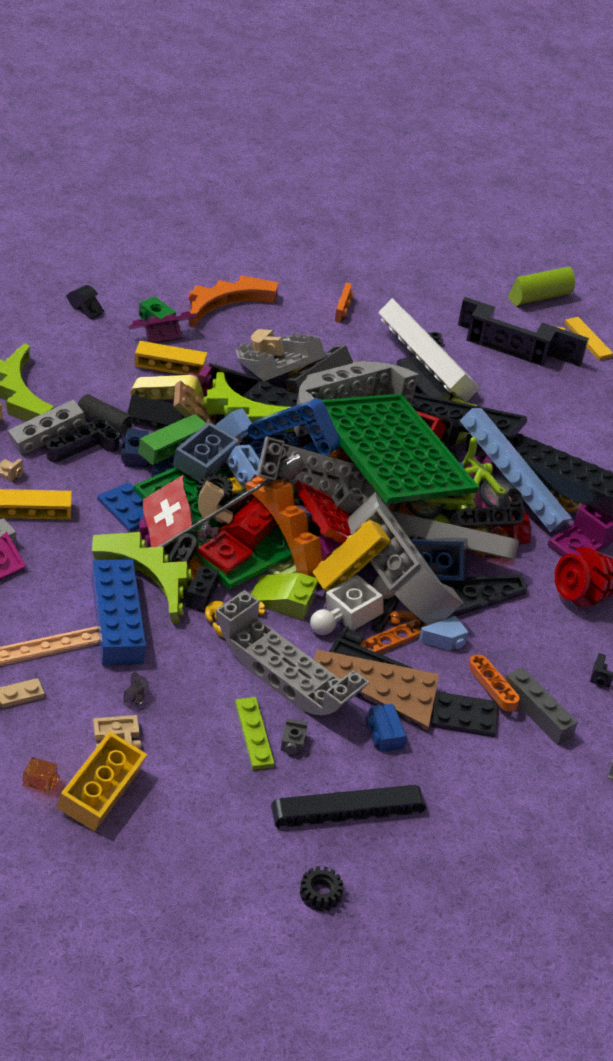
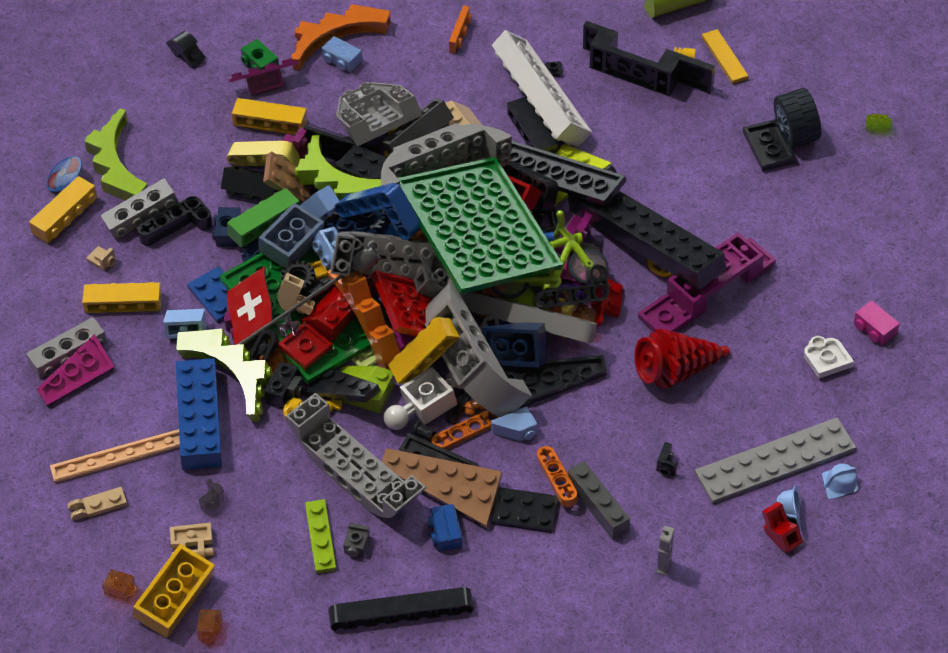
camera: 10 degrees right, 10 degrees up
(96, 525) = (184, 321): none -> light blue brick
(102, 410) = (197, 187): dark grey piece -> none
(142, 818) = (209, 625): none -> clear orange brick
(216, 592) = (295, 388): none -> pearl dark grey plate
(235, 315) = (341, 54): none -> light blue brick
(265, 341) = (364, 98): tan brick -> none
(267, 590) = (342, 385): none -> black wing
(516, 469) = (608, 236): light blue brick -> none

